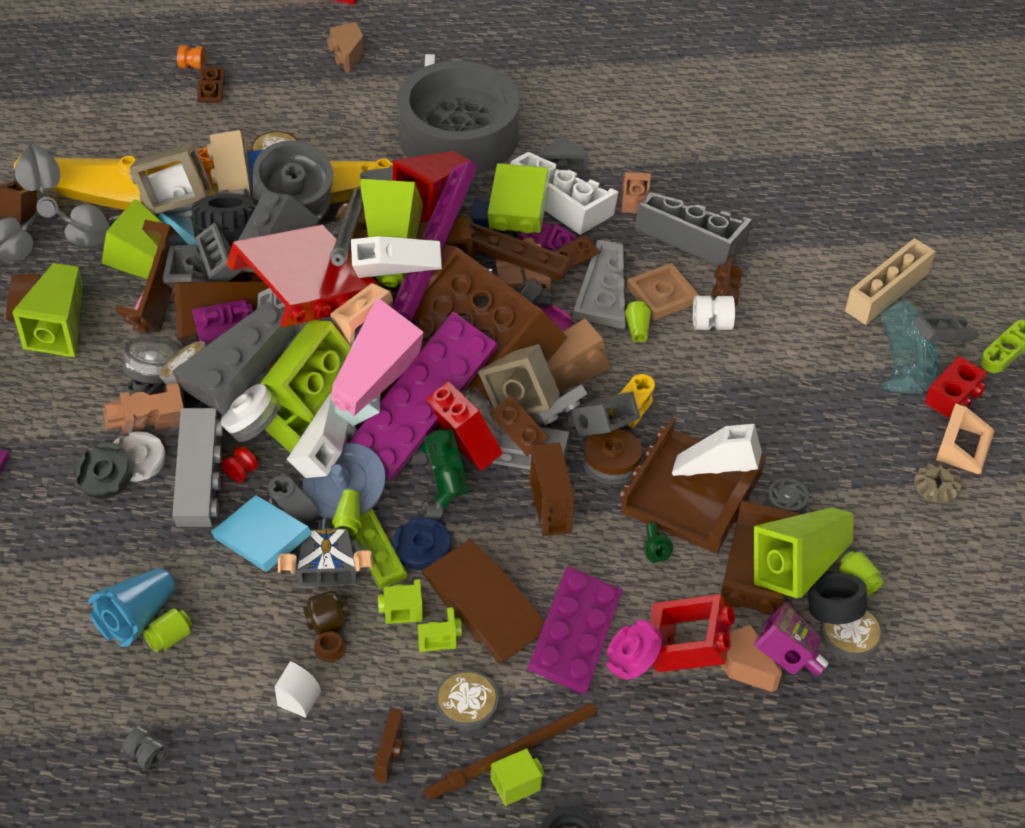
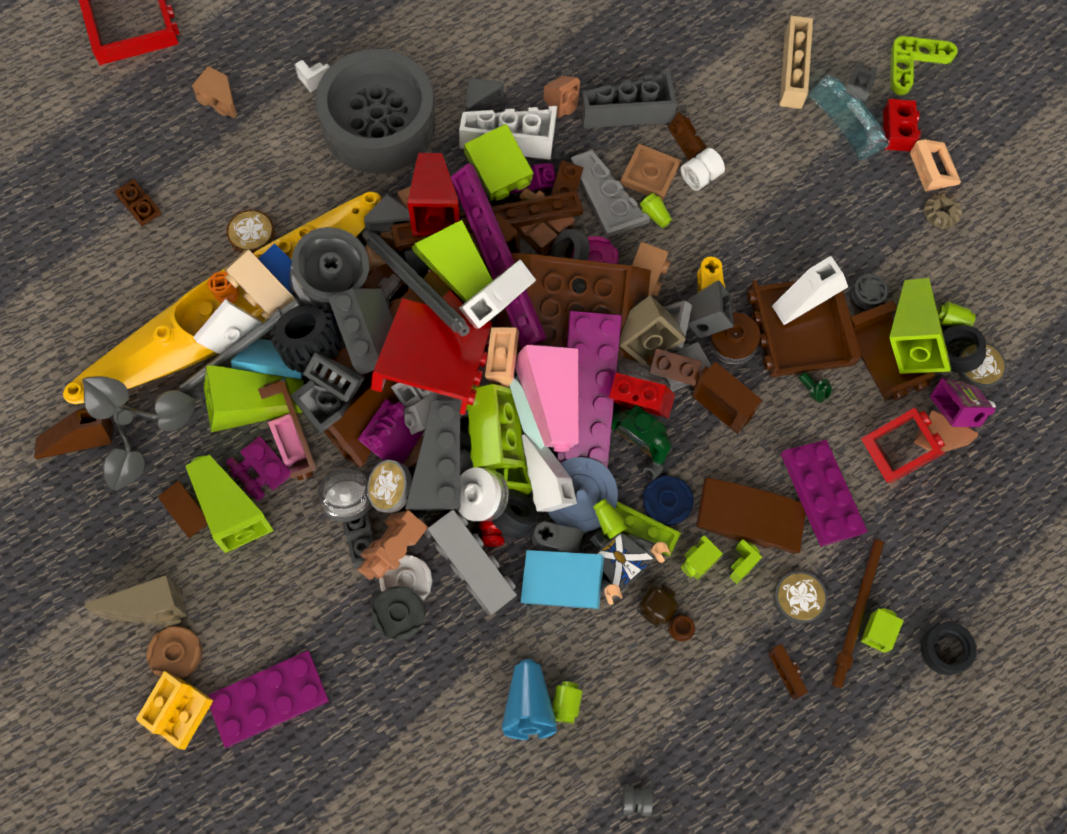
camera: 40 degrees left, 20 degrees up
(115, 296) = (264, 462): none -> magenta plate
(191, 57) = (96, 186): orange wheel -> none
(194, 171) = (215, 318): dark tan window -> none
(268, 455) = (518, 515): none -> black tyre
(297, 690) = (693, 679): white brick -> none
(634, 650) = (877, 482): dark pink tile -> none

